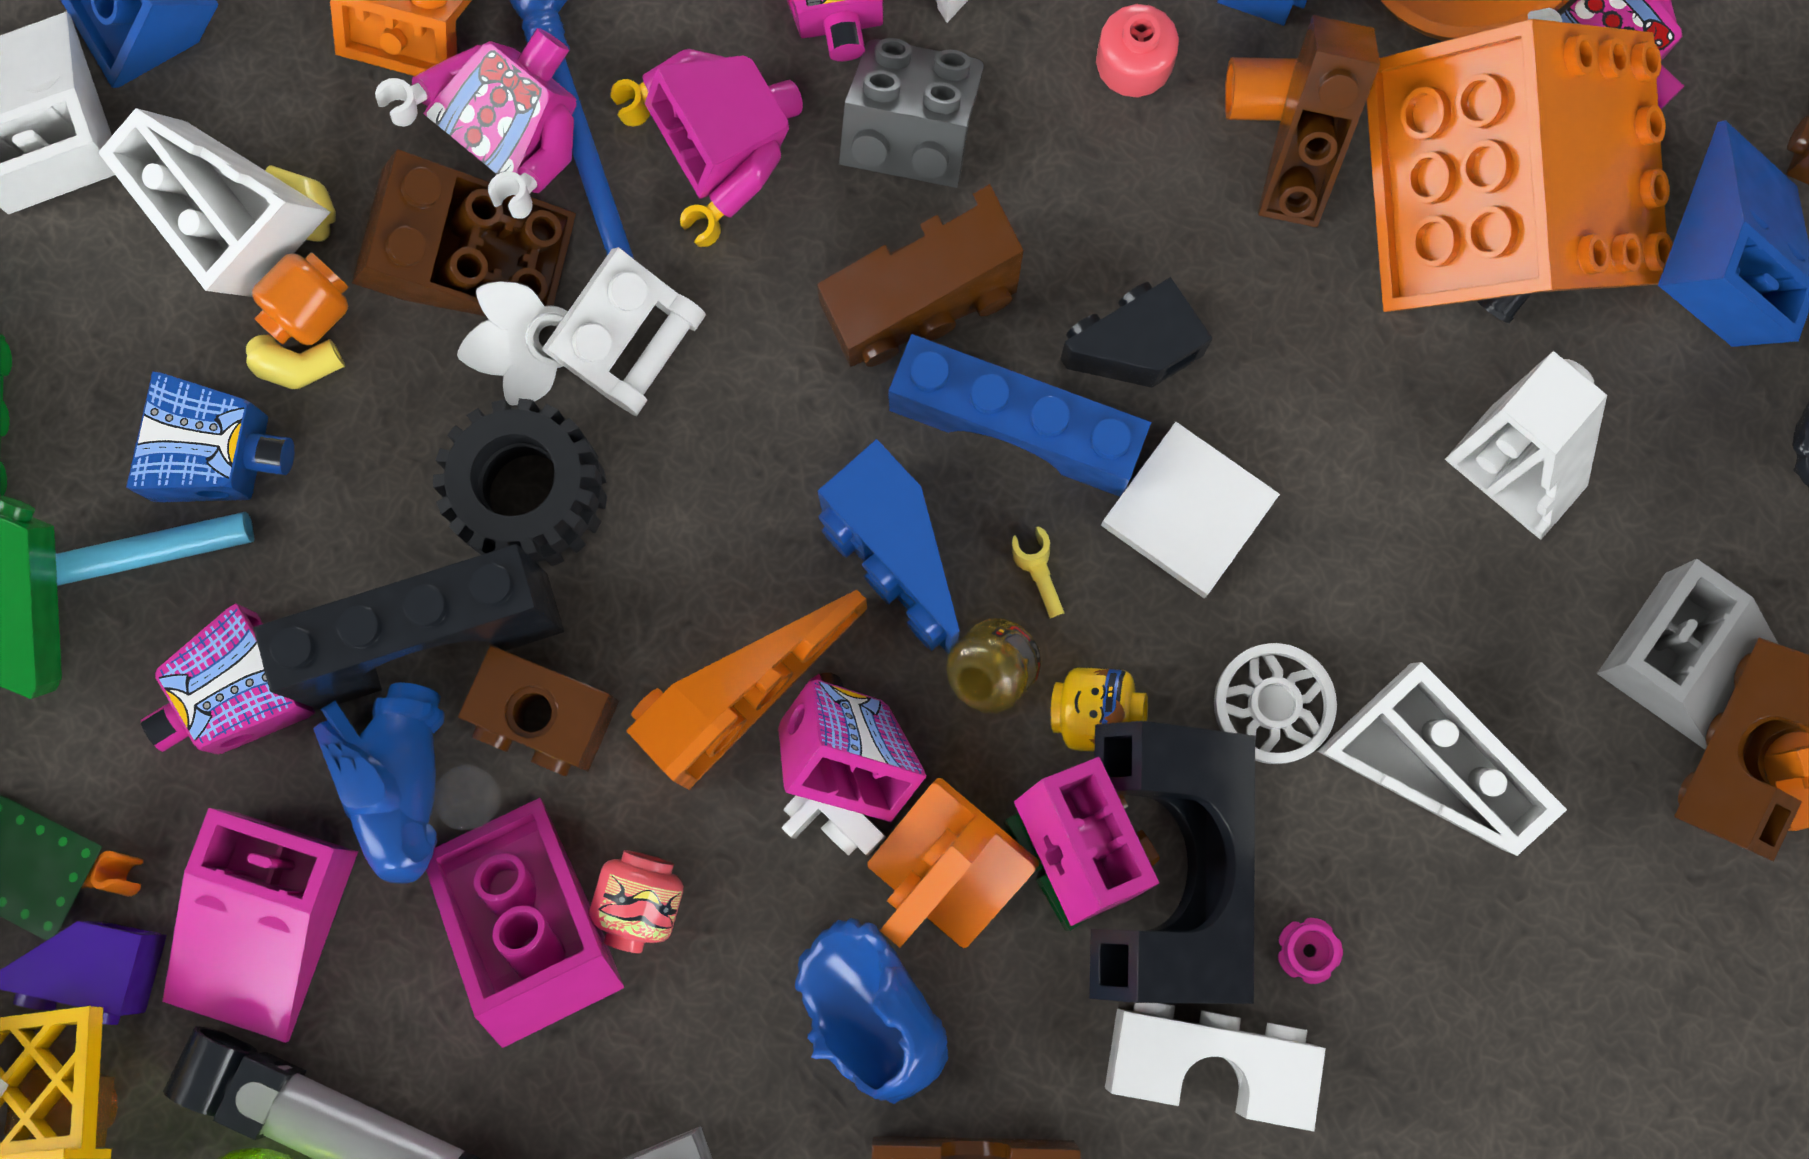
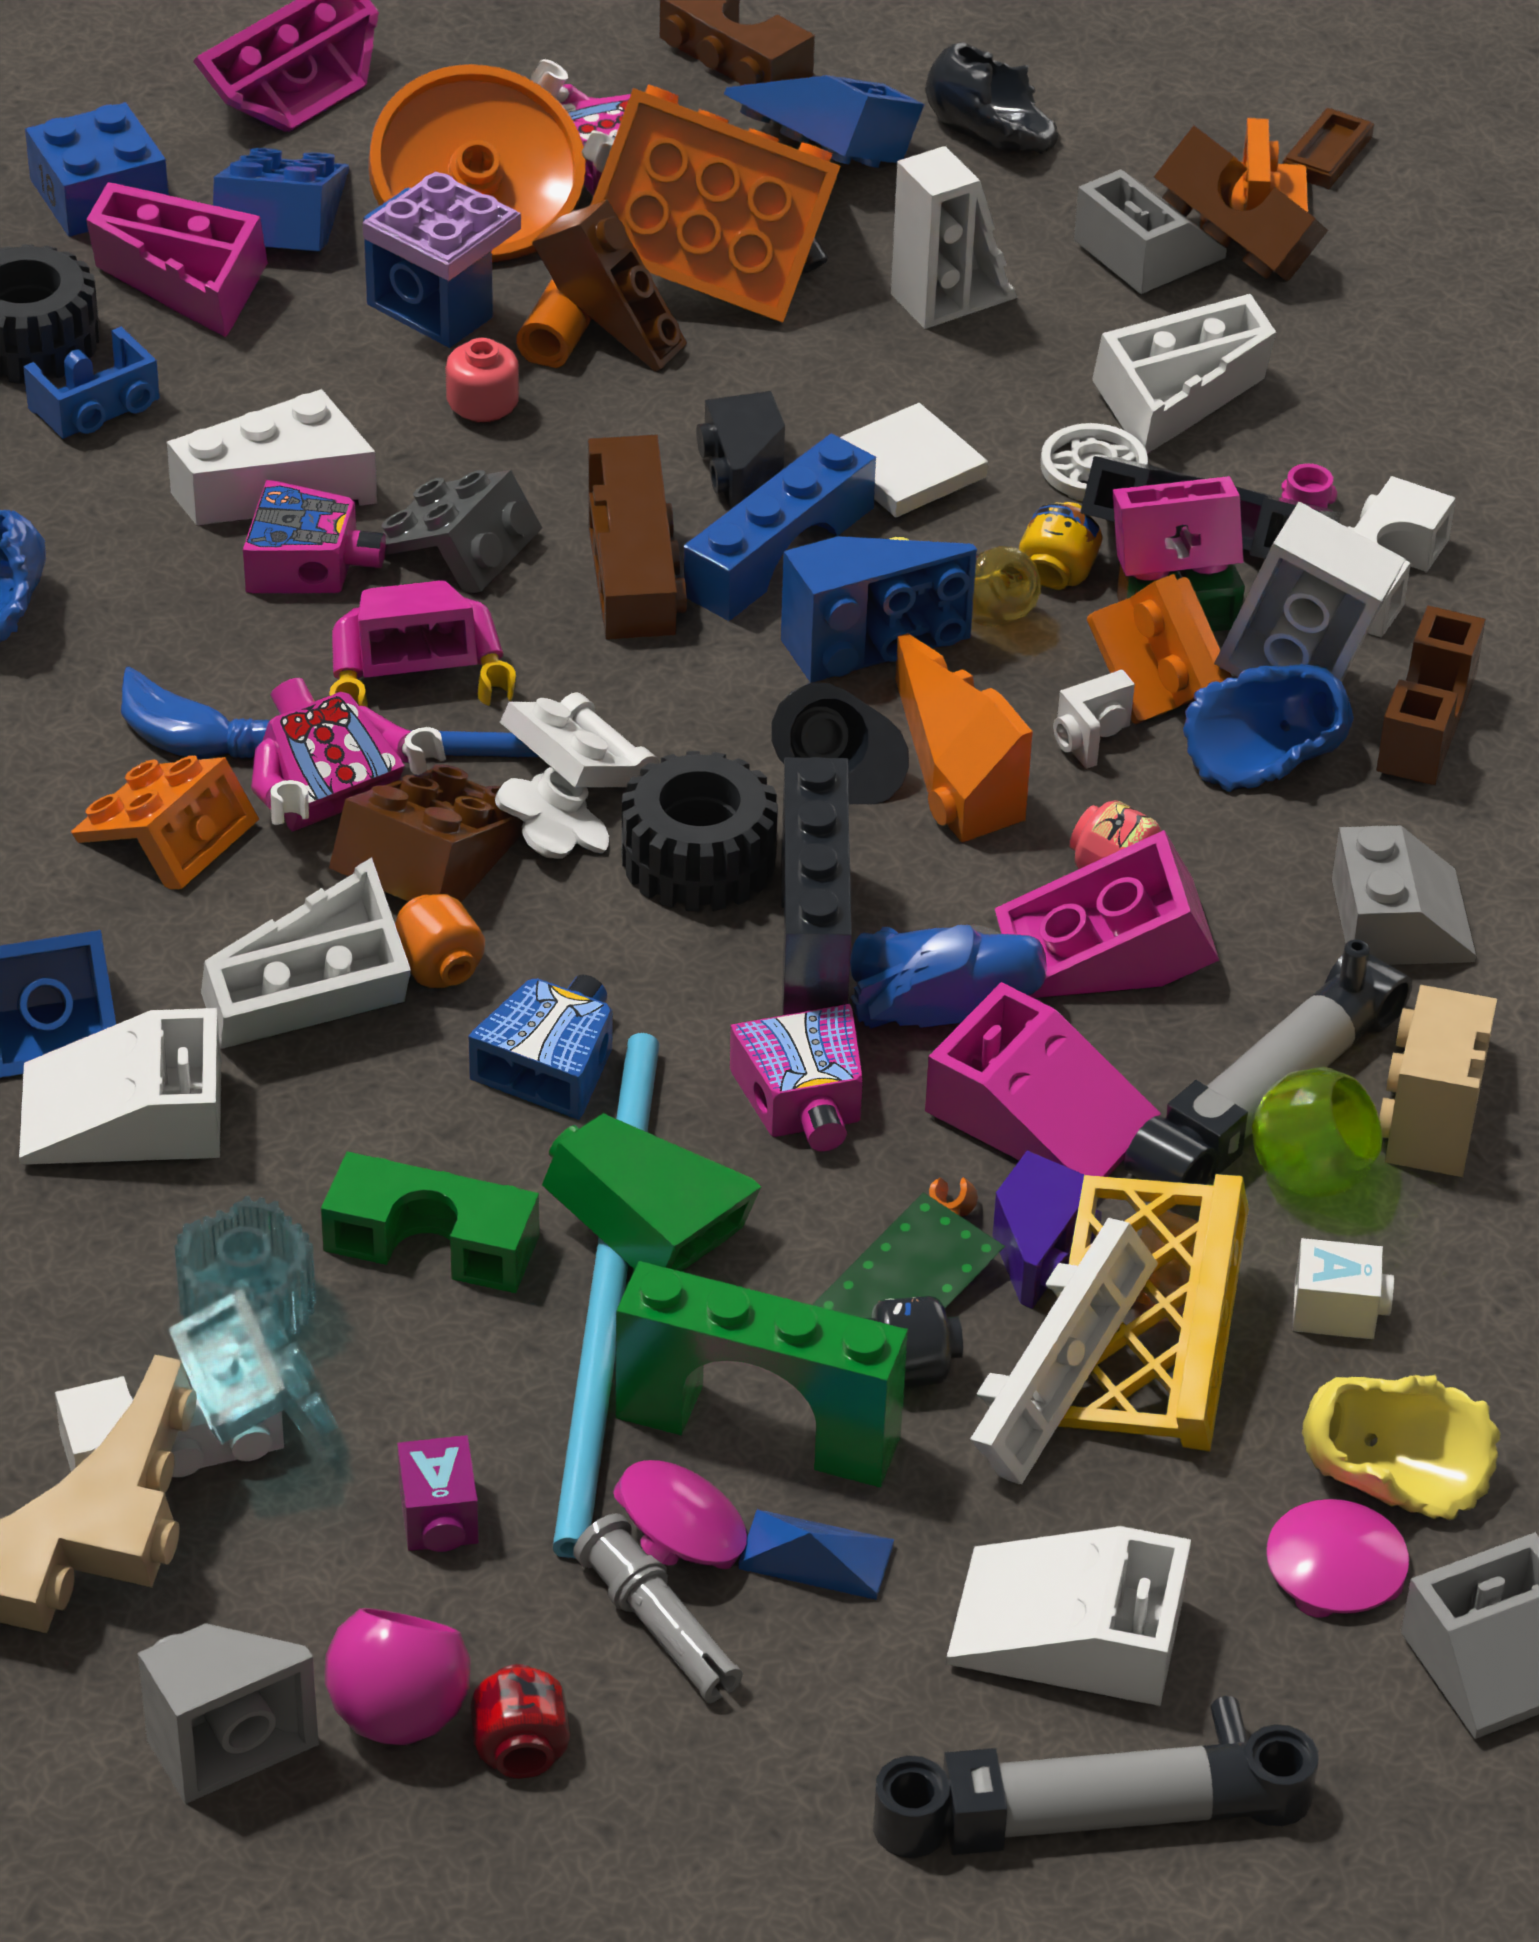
camera: 75 degrees left, 35 degrees down
(290, 369) = (493, 979): light yellow arm -> none
(510, 684) = (917, 872): reddish brown brick -> none
(695, 571) = (836, 724): none -> black piece
(847, 750) = (1041, 664): dark pink torso -> none
(1000, 1030) = (1311, 598): none -> white brick

